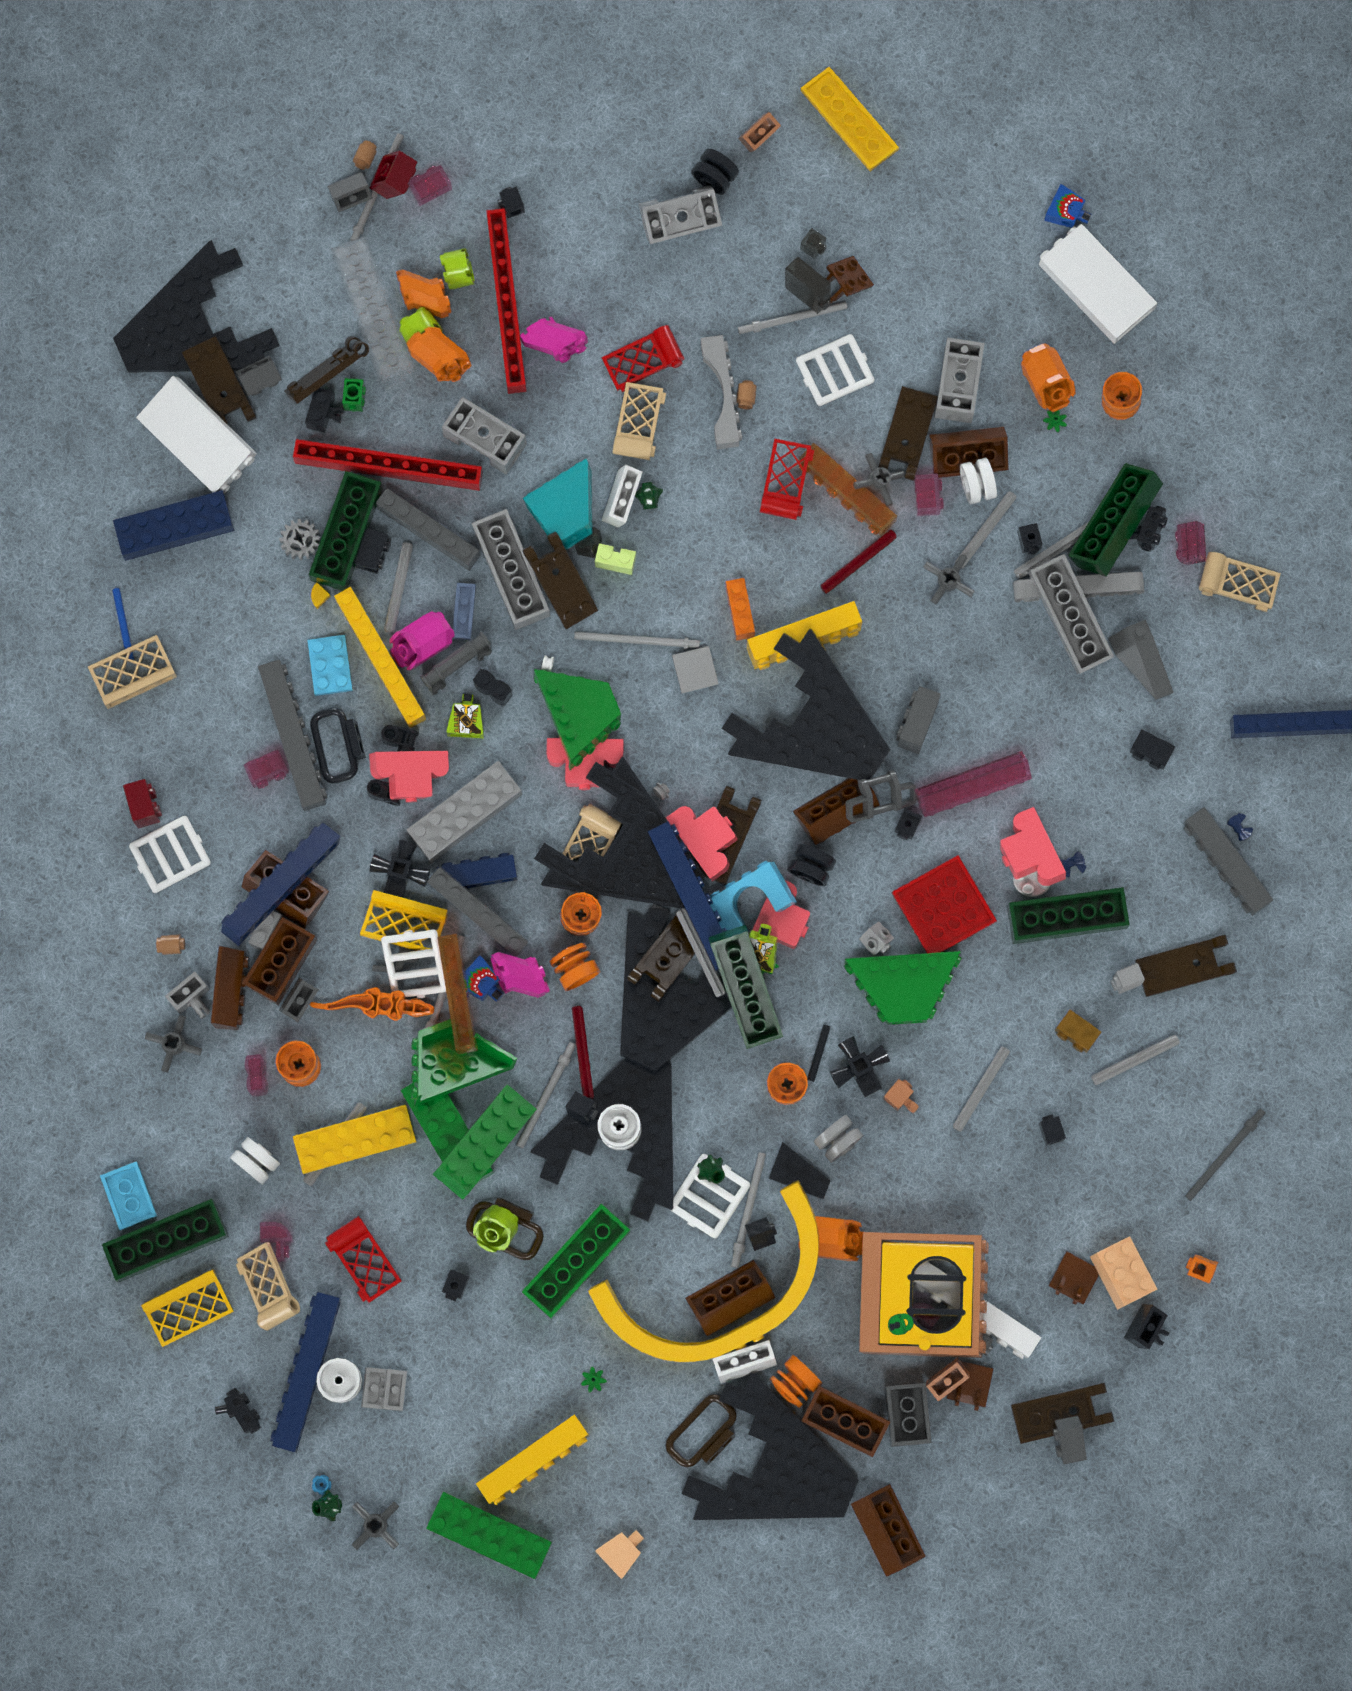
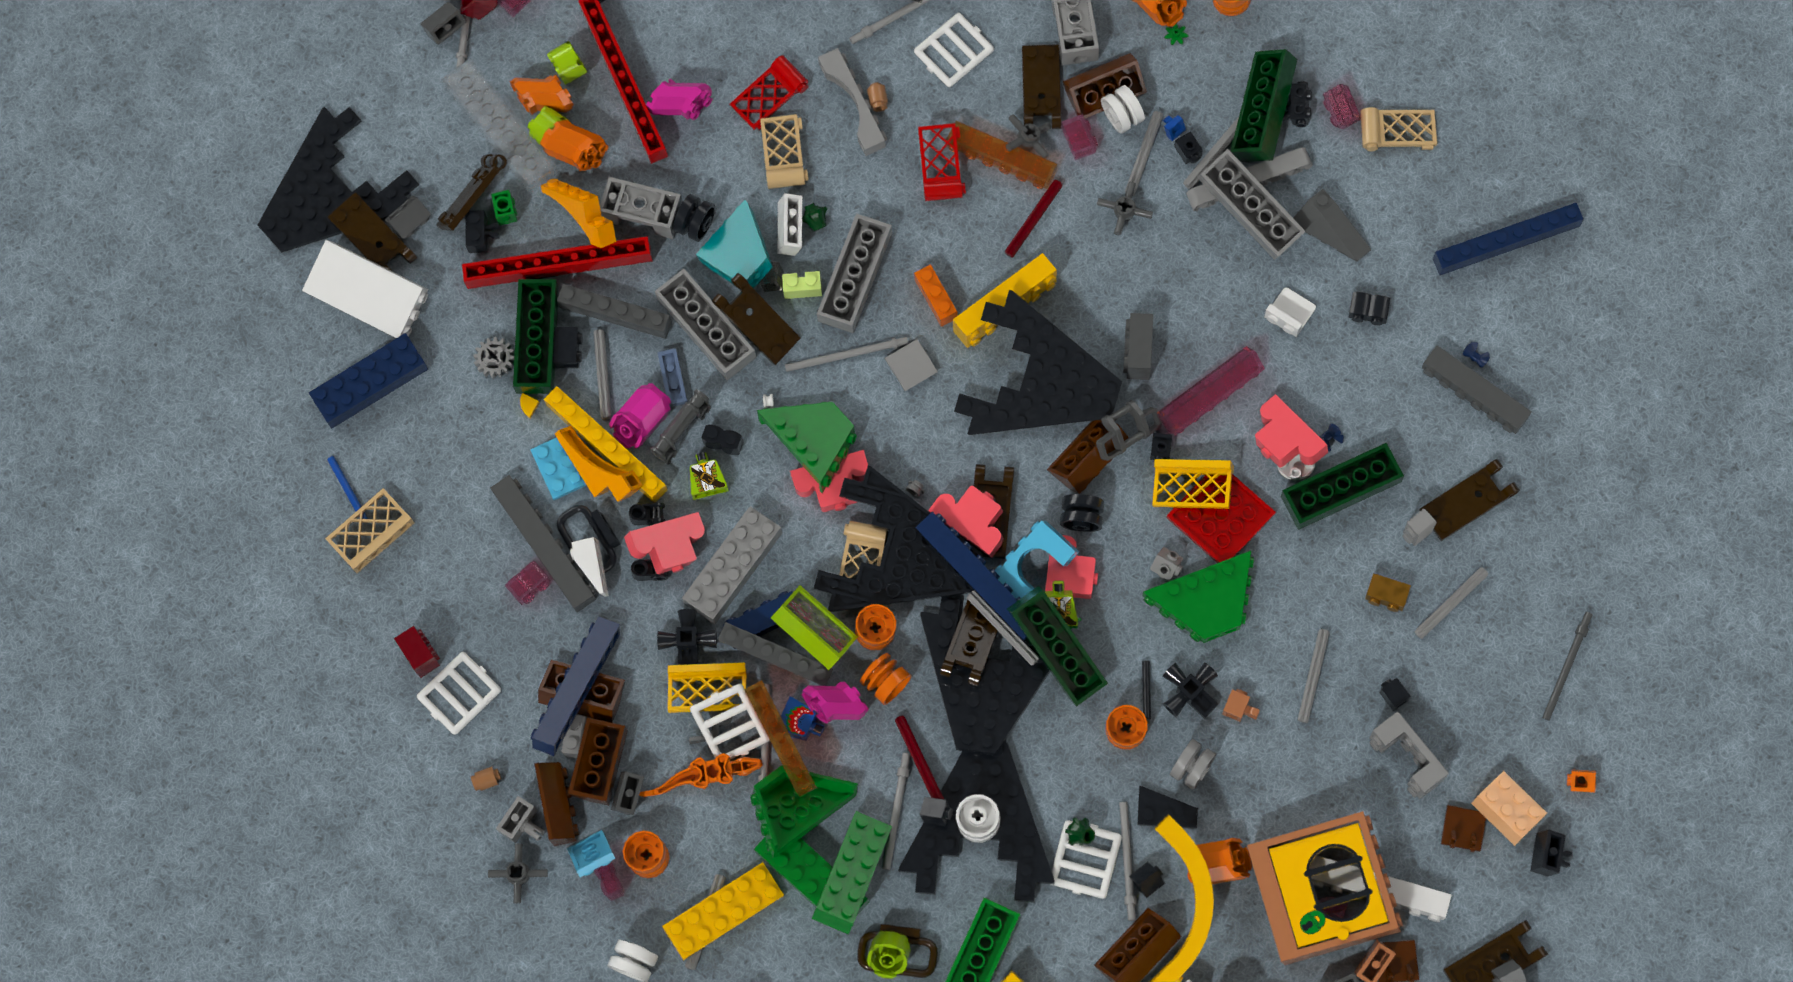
camera: 10 degrees left, 5 degrees down
(246, 1047) = (591, 853): none -> medium azure plate
(330, 765) = (589, 559): none -> white slope
(362, 682) = (595, 471): none -> light orange arch
(428, 420) = (584, 209): none -> light orange arch
(522, 897) = (814, 627): none -> lime brick
(532, 461) = (694, 217): none -> black wheel
(669, 563) = (854, 273): none -> light grey brick
(935, 856) = (1195, 468): none -> yellow fence
(1022, 513) = (1174, 127): none -> blue tile
(1039, 1165) = (1397, 729): none -> light grey plate
(1075, 729) = (1290, 311): none -> white bracket

